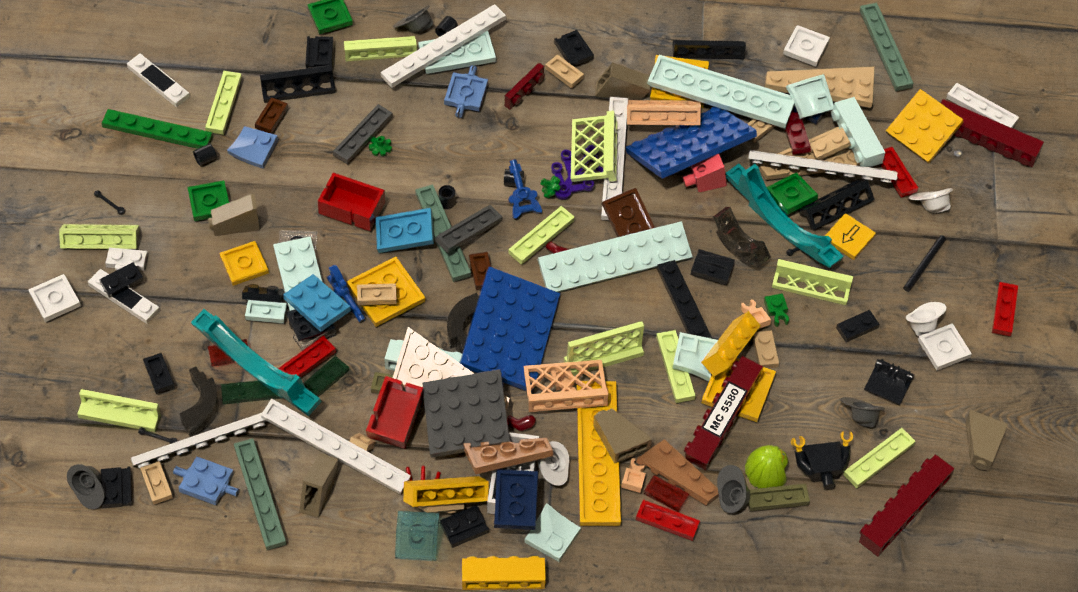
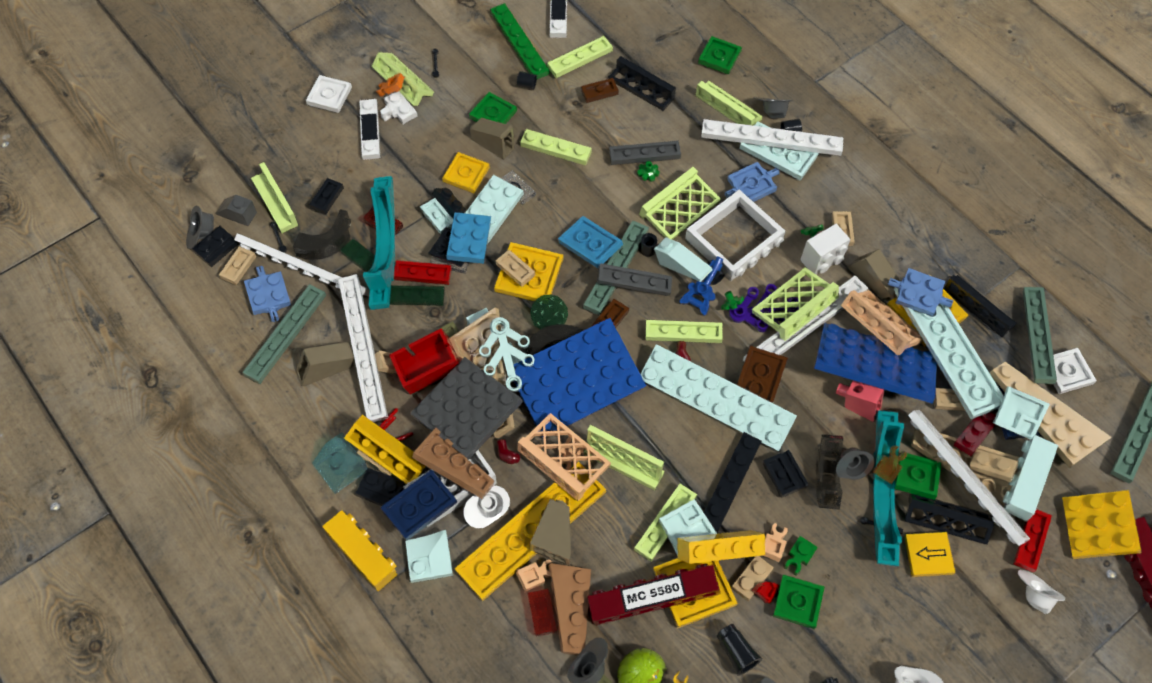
camera: 50 degrees right, 5 degrees up
(98, 445) = (237, 209): none -> dark grey slope
(103, 246) = (392, 85): none -> orange plate
(121, 279) = (376, 115): black plate -> none
(253, 146) = (564, 101): medium blue plate -> none
(289, 186) = (556, 147): none -> yellowish green plate
(319, 51) = (682, 74): black plate -> none
(341, 289) = (499, 246): blue piece -> none
(351, 201) = (579, 191): red piece -> none
(418, 145) = (668, 195): none -> yellowish green fence
(435, 305) = (548, 311): none -> clear green tile
(451, 349) = (505, 350): none -> light aqua plant
(486, 186) = (680, 259): none -> light aqua slope
(498, 165) = (694, 233): none -> white window
(524, 86) = (799, 214): dark red plate -> none
(547, 90) = (812, 231): none -> green plant
(574, 48) = (870, 218): black plate -> none
(574, 94) = (825, 249): none -> white brick
(667, 520) = (518, 634): red plate -> none
(668, 70) = (920, 292): none -> medium blue plate
(749, 219) = (854, 464): none -> dark grey piece
(766, 36) = (1039, 335): none -> sand green plate
(770, 202) = (888, 467): none -> clear orange plate
(783, 349) = (766, 590): none -> red tile
(807, 397) = (738, 649): none -> black plant
(808, 336) = (798, 601): none -> green plate
(813, 278) = (860, 560): yellowish green fence -> none
(857, 326) = (851, 633): black plate -> none
(924, 263) = (972, 637): black bar -> none

